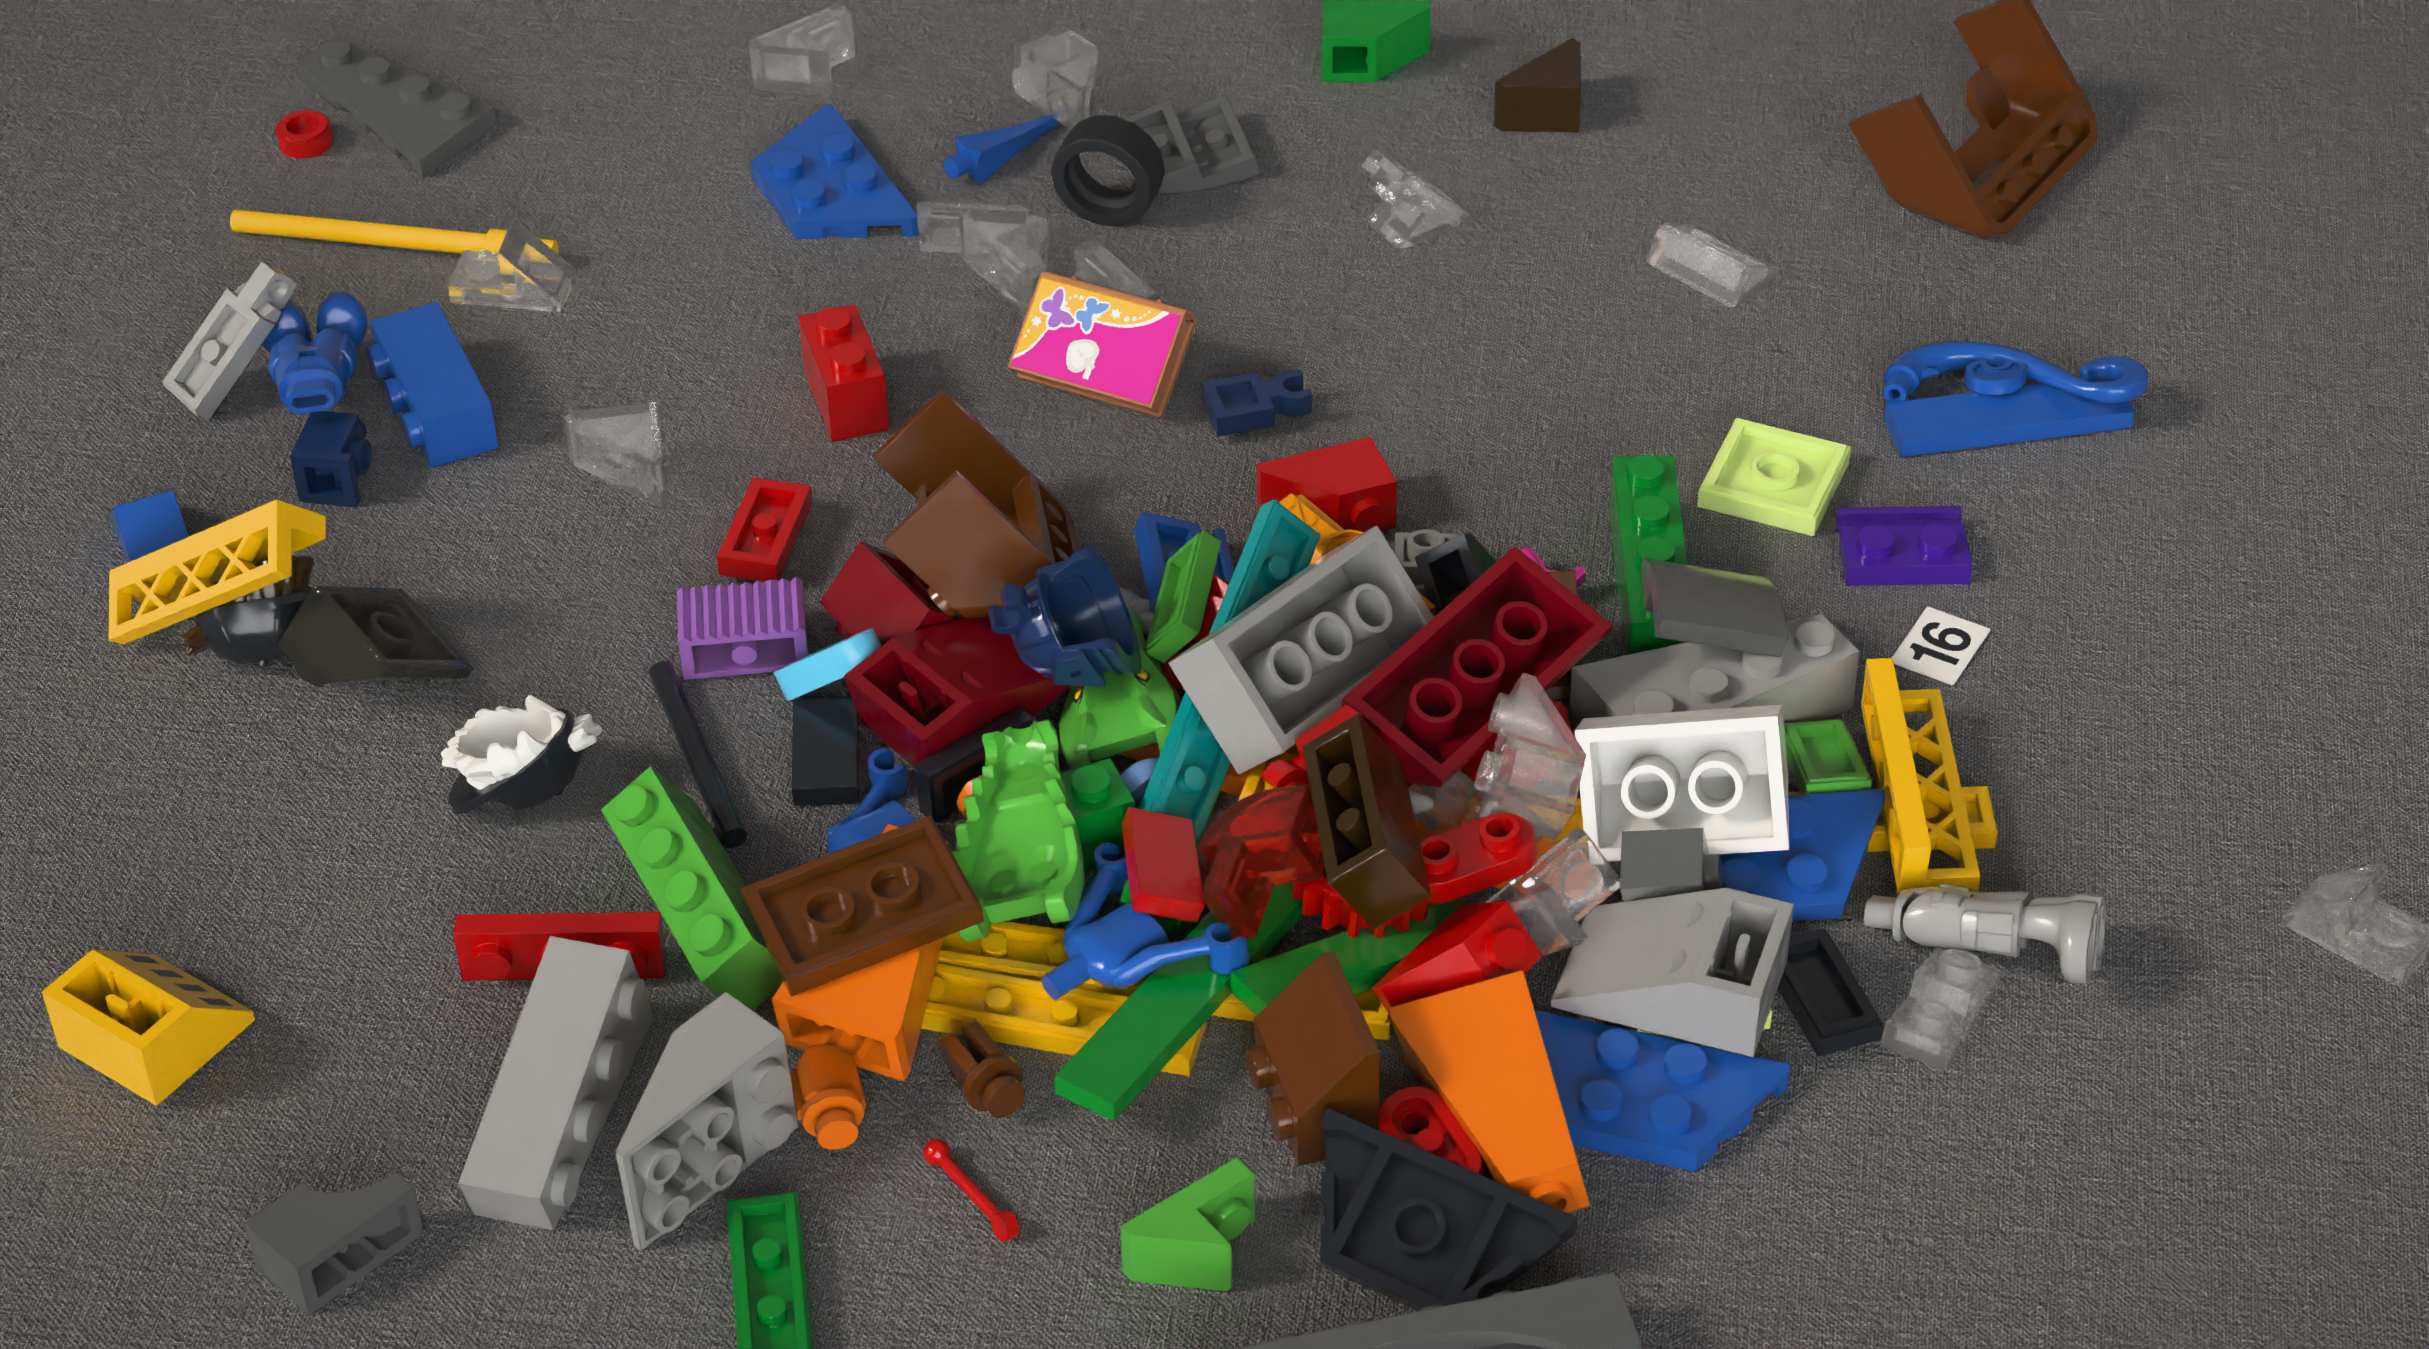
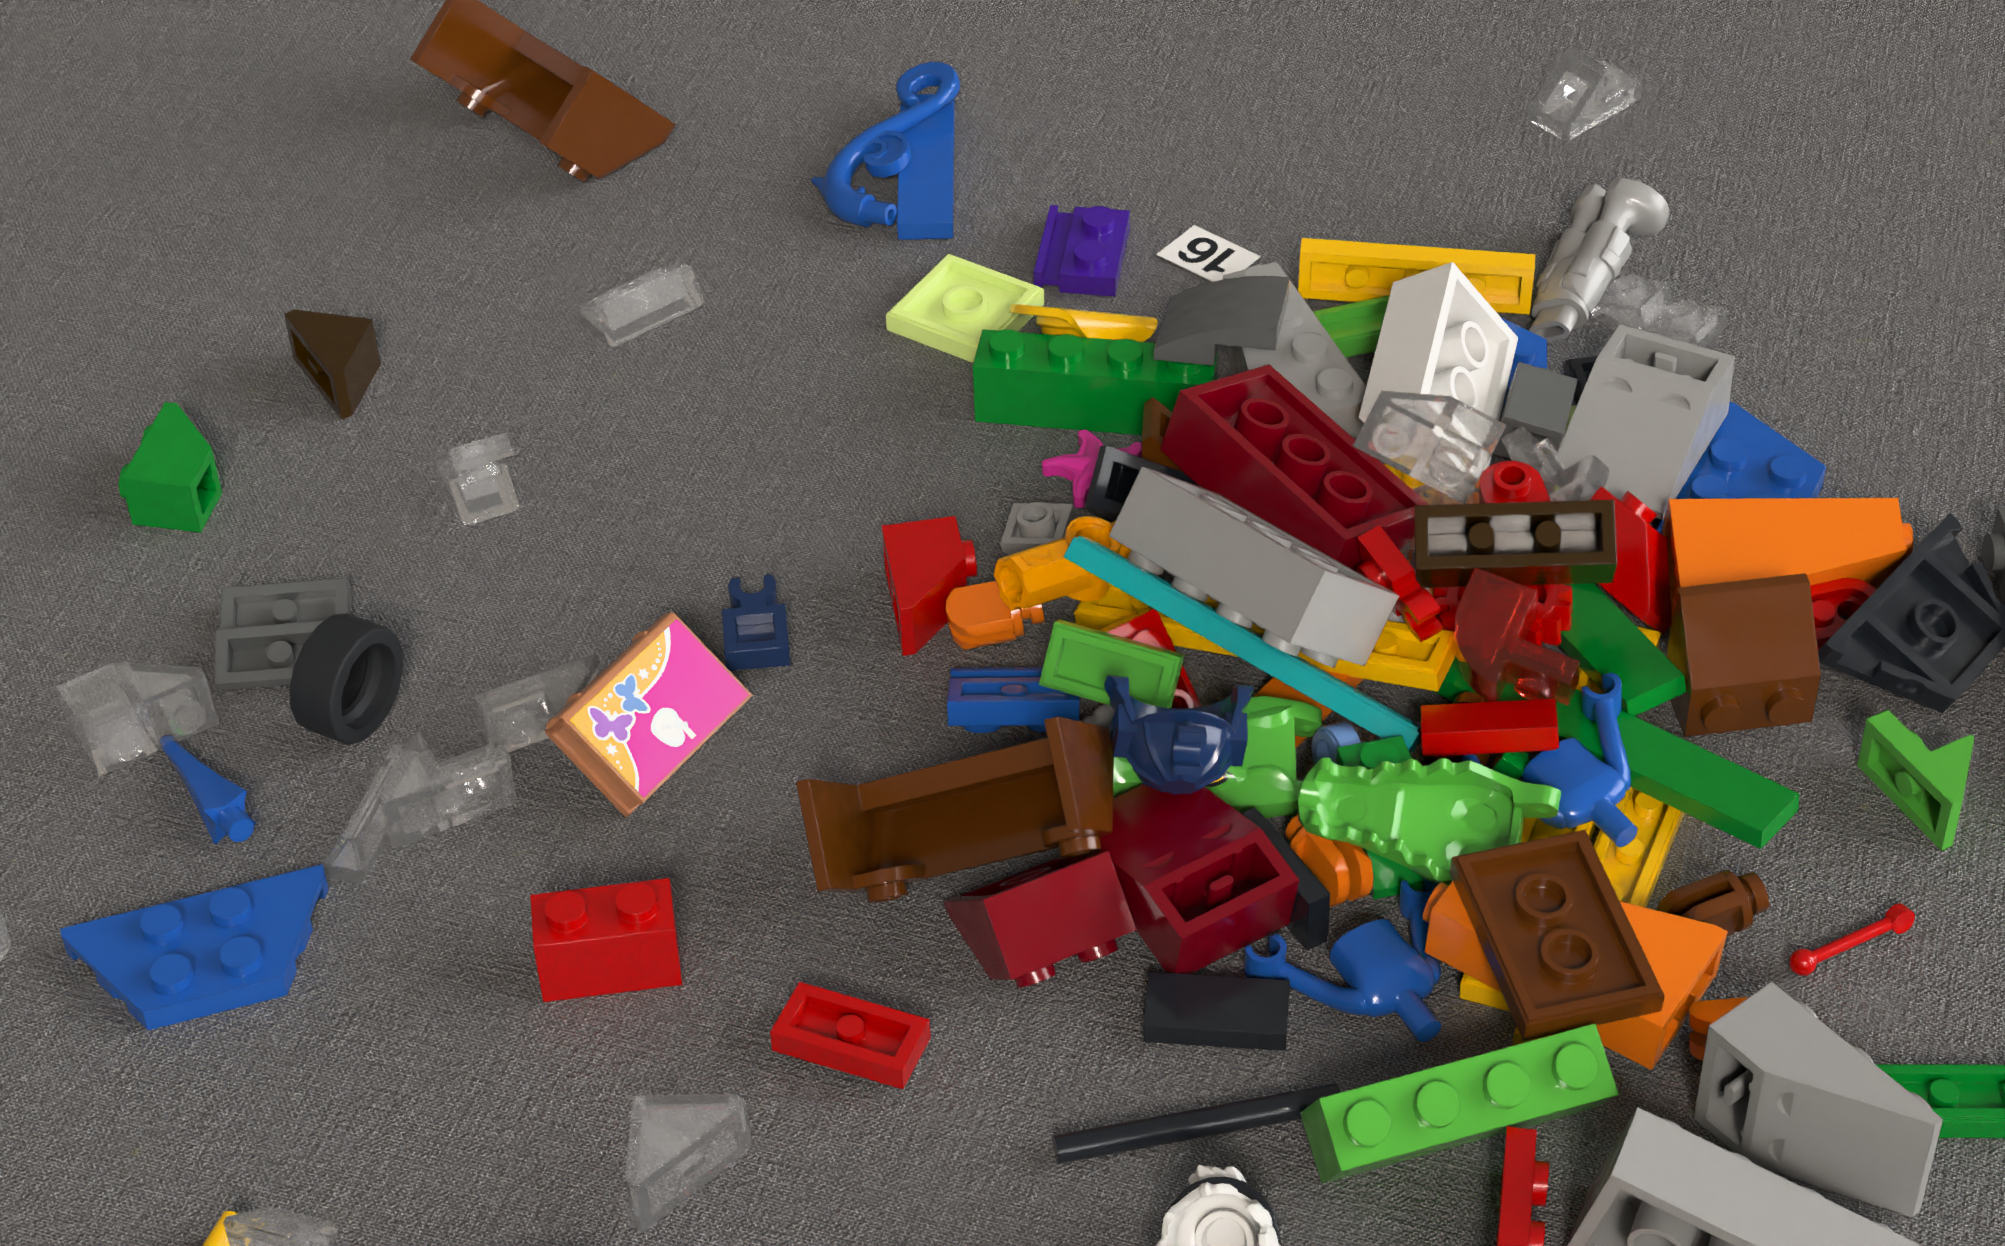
camera: 80 degrees left, 0 degrees up
(741, 628) = (1023, 1060): medium lavender brick -> none
(826, 664) = (1120, 974): medium azure beam -> none
(1741, 532) = (1089, 323): none -> yellow hat

